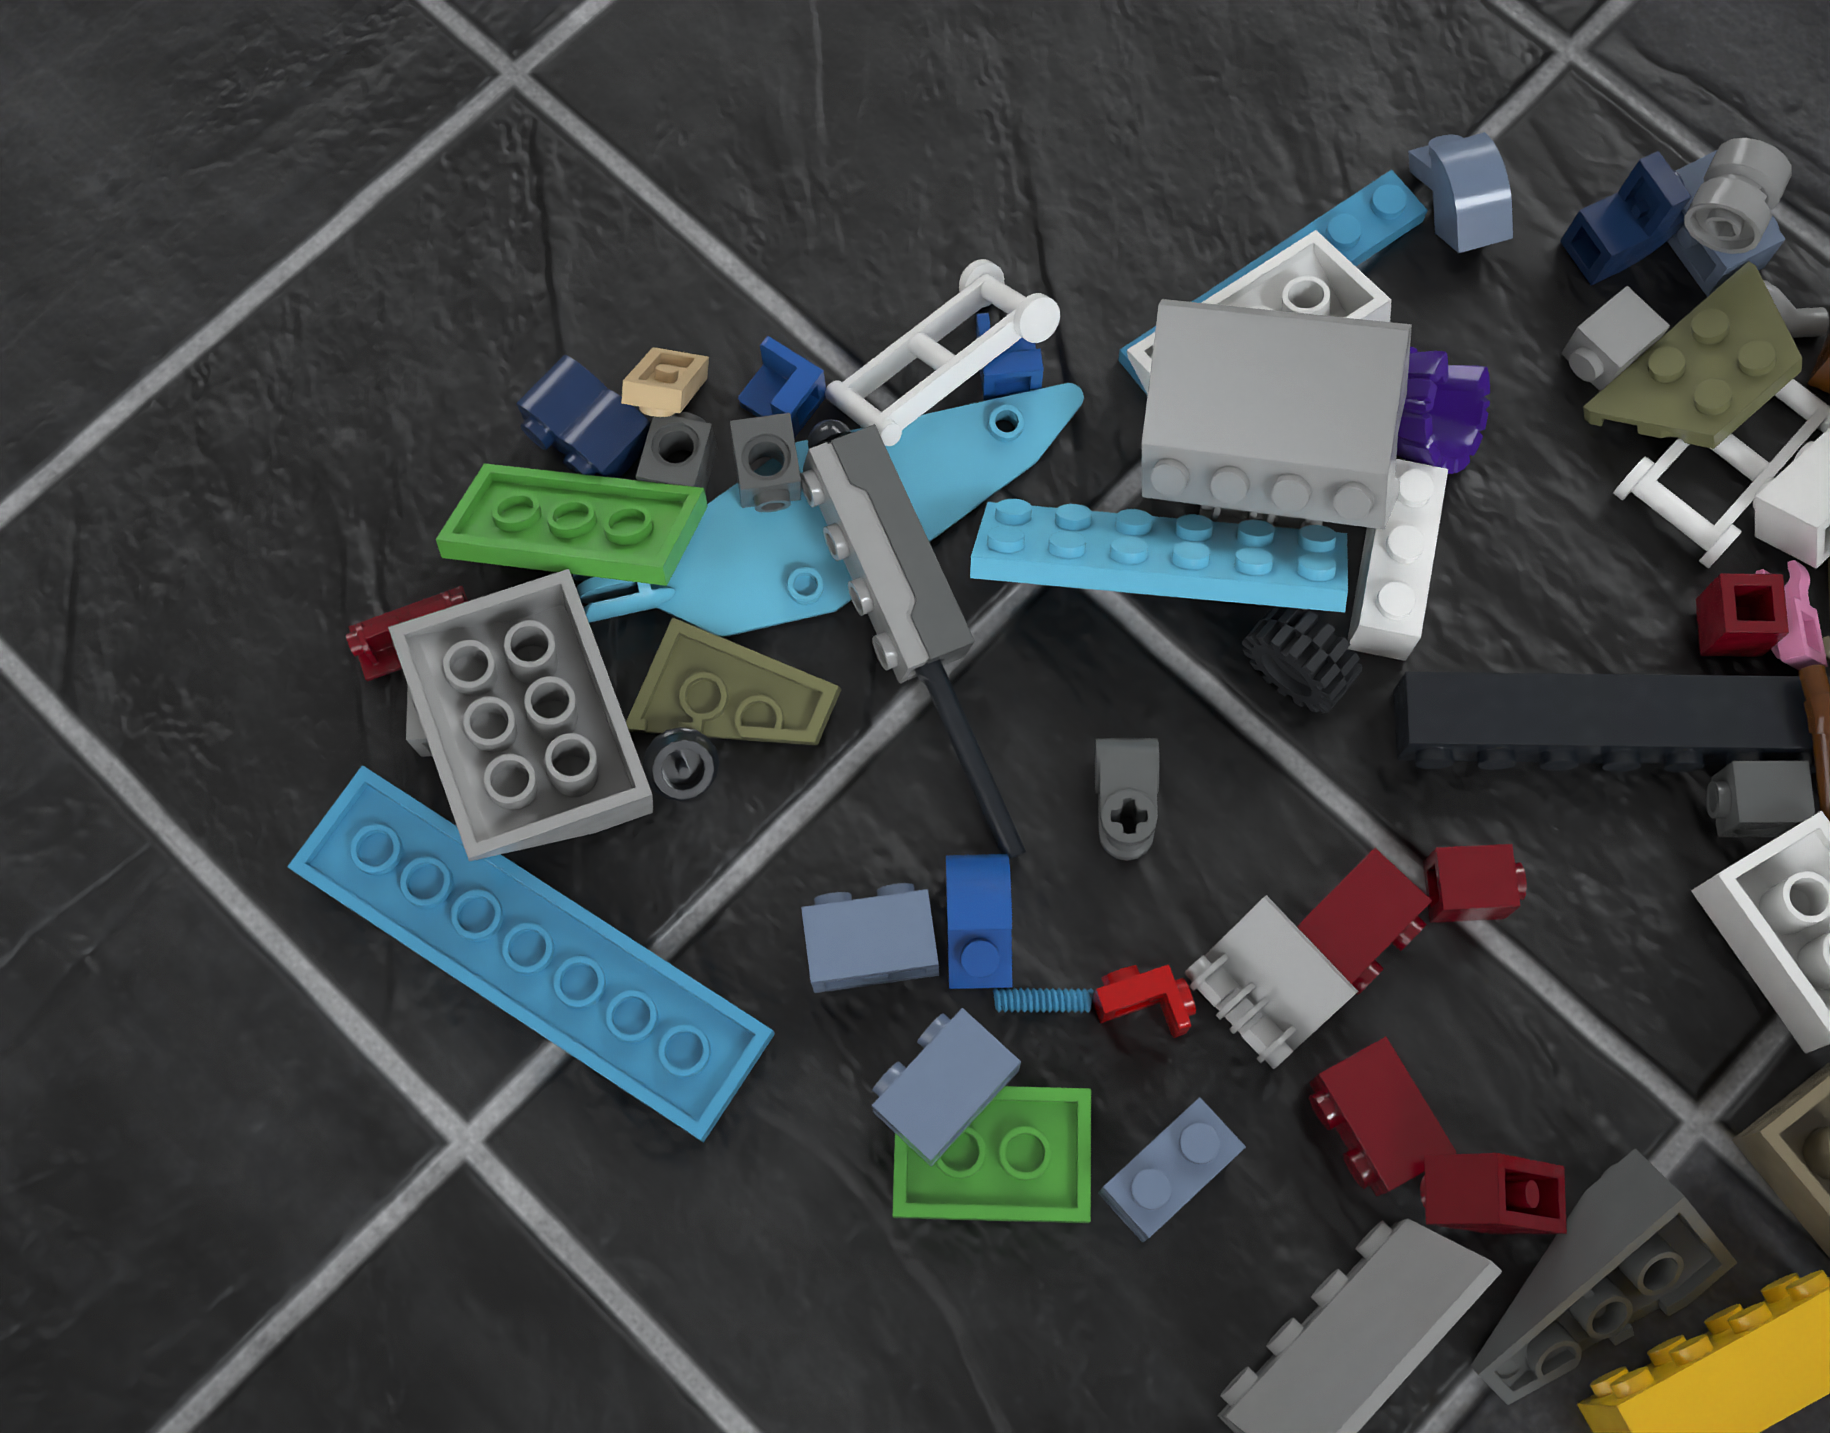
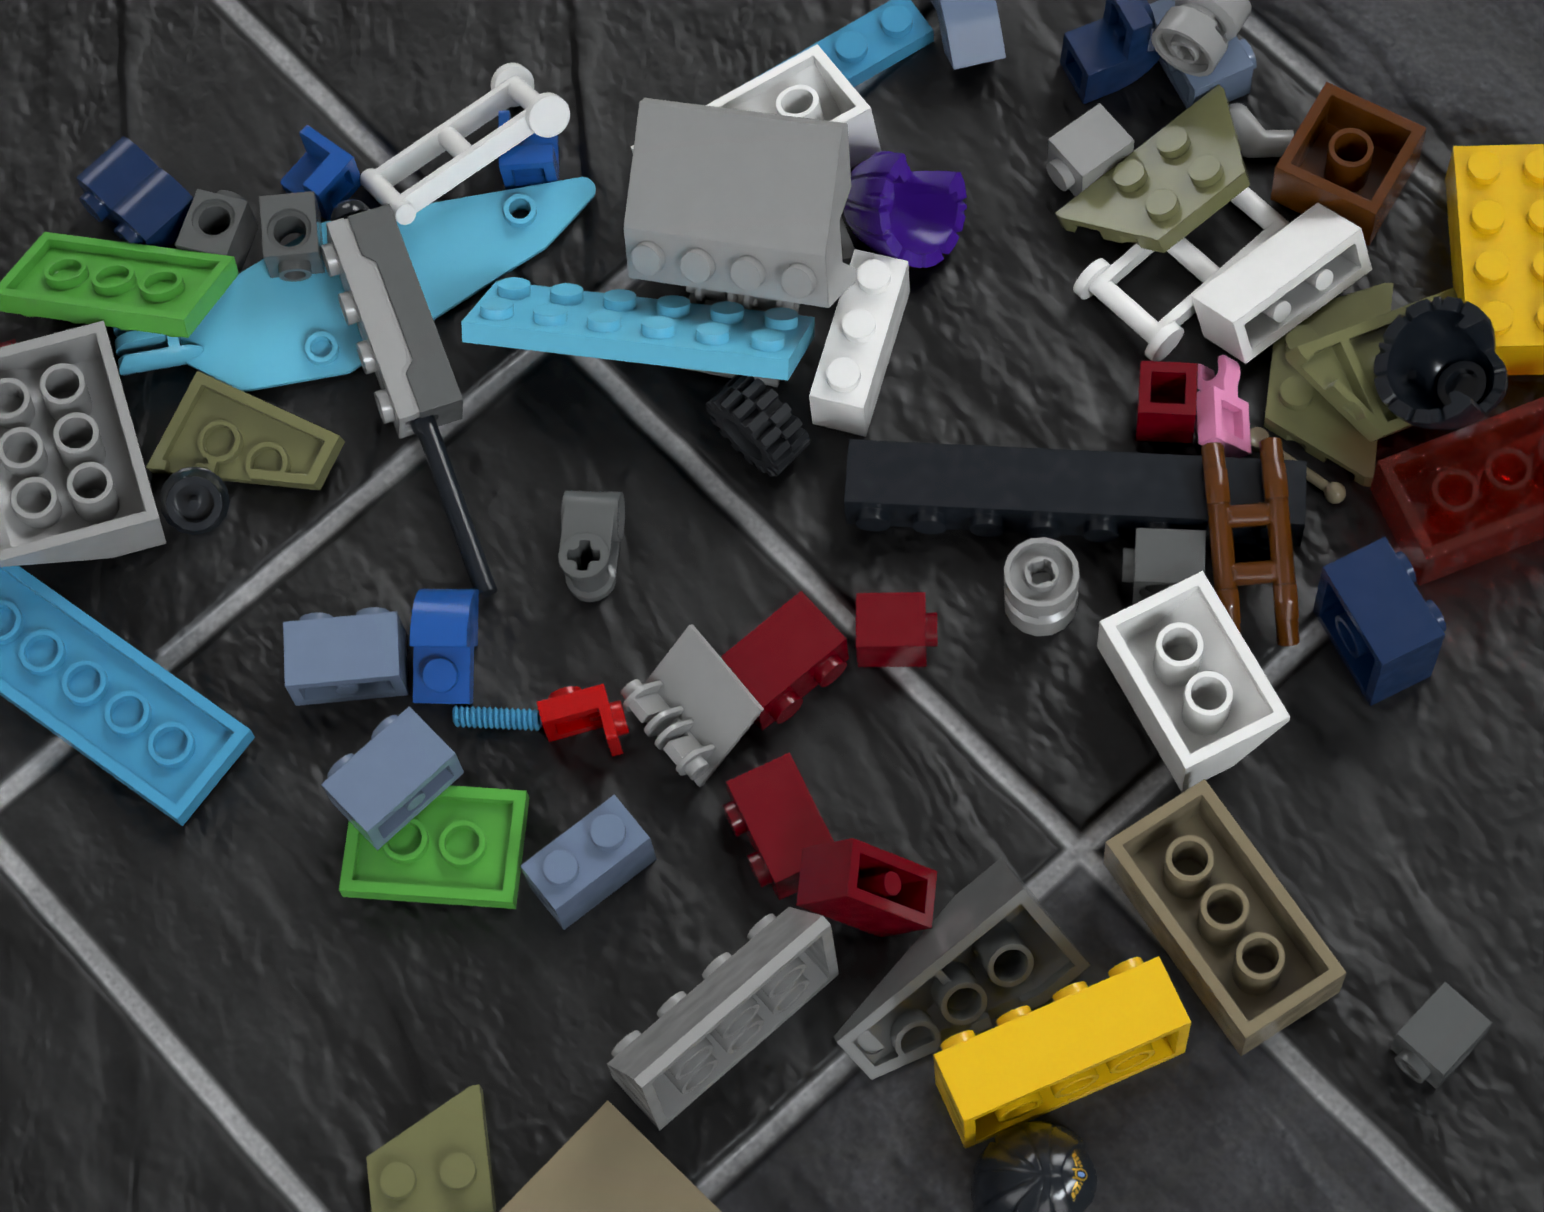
camera: 10 degrees right, 5 degrees down
(664, 381) = (210, 162): tan plate -> none
(1632, 829) = (1041, 586): none -> light grey wheel

